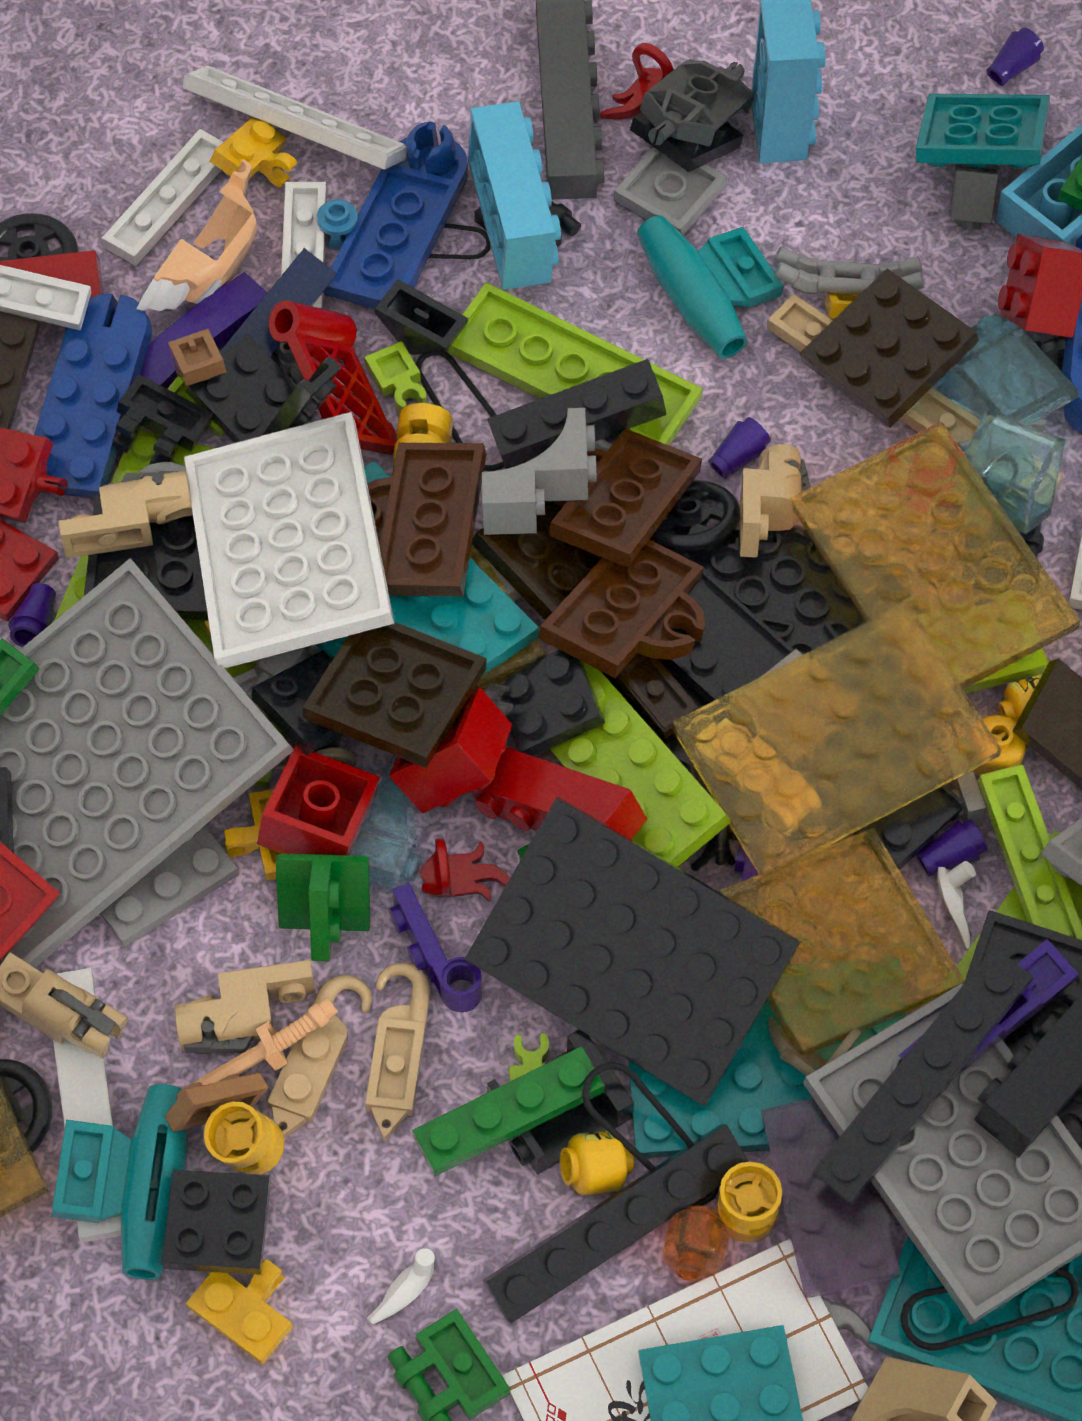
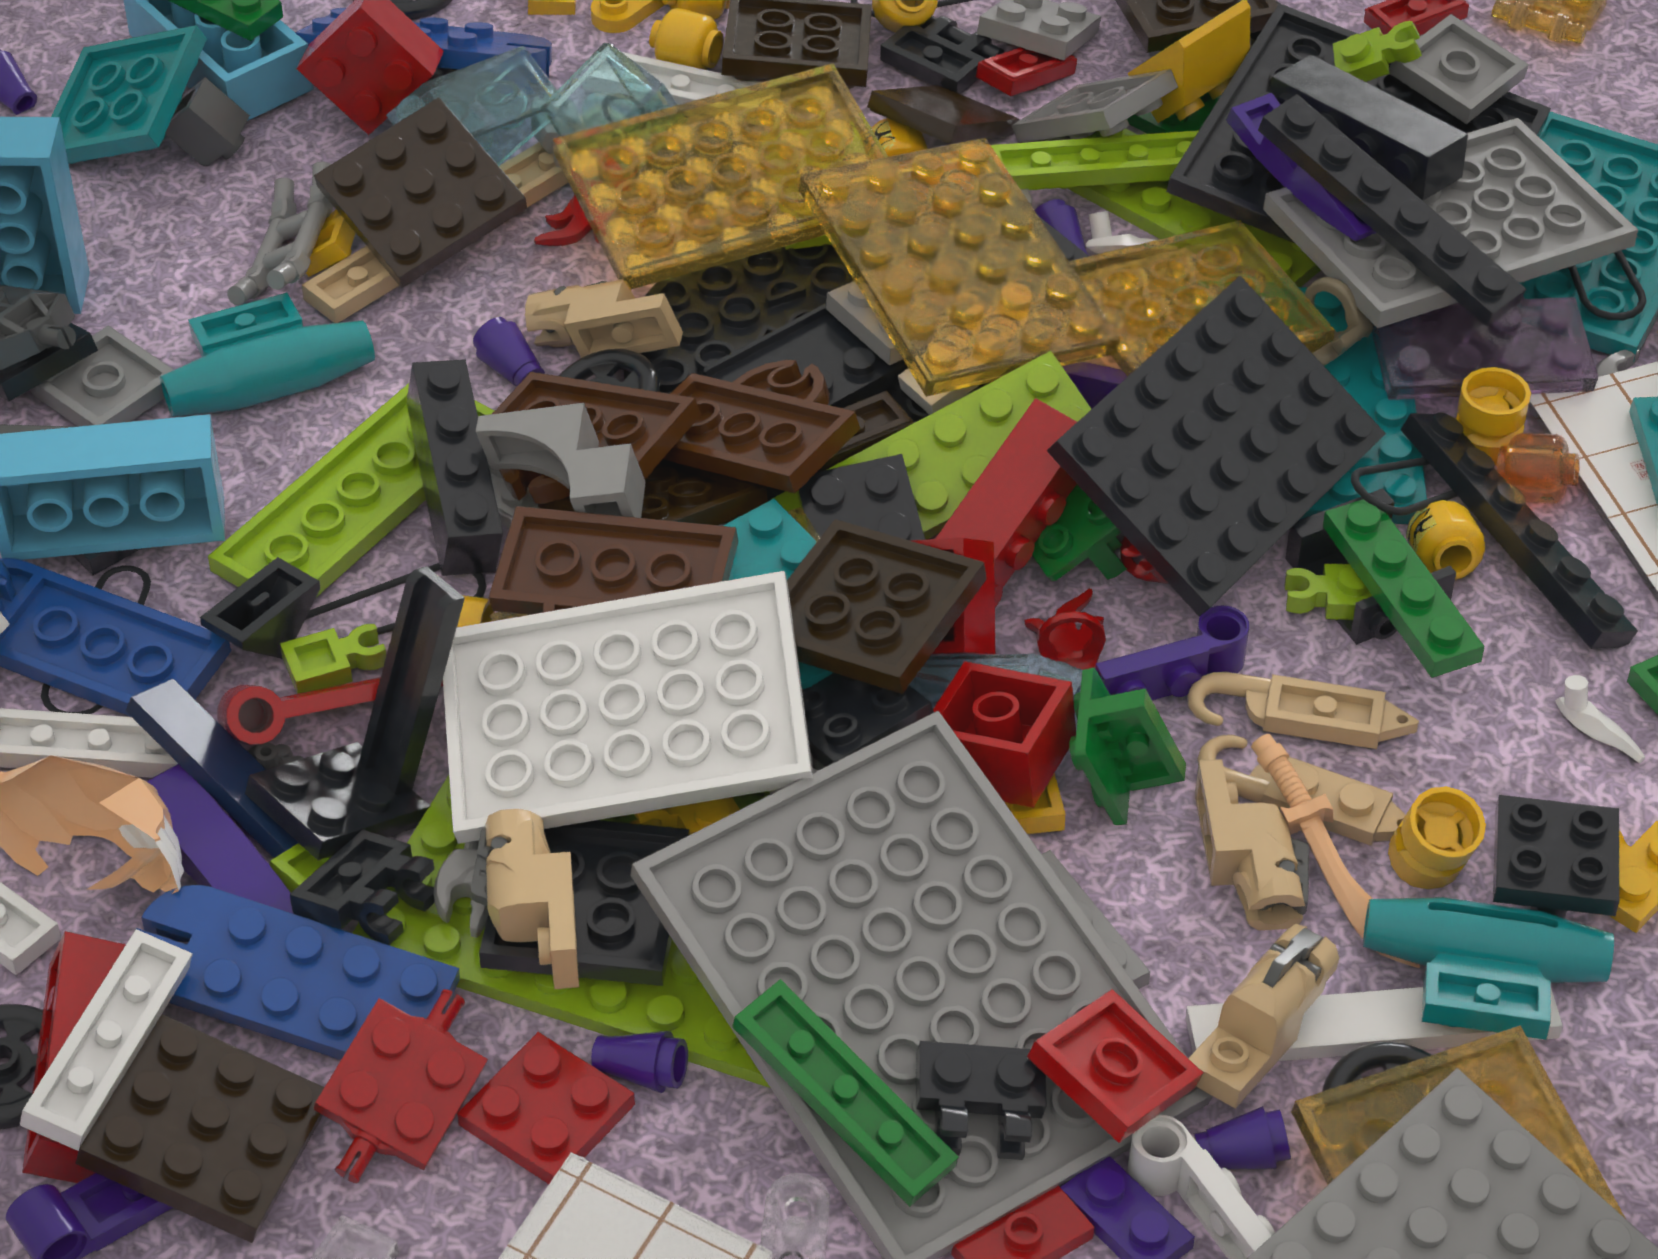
camera: 85 degrees left, 15 degrees down
(196, 357) = (287, 816): medium nougat bracket -> none
(198, 1101) = (1391, 859): medium nougat plate -> none
(337, 220) = (62, 695): dark azure plate -> none

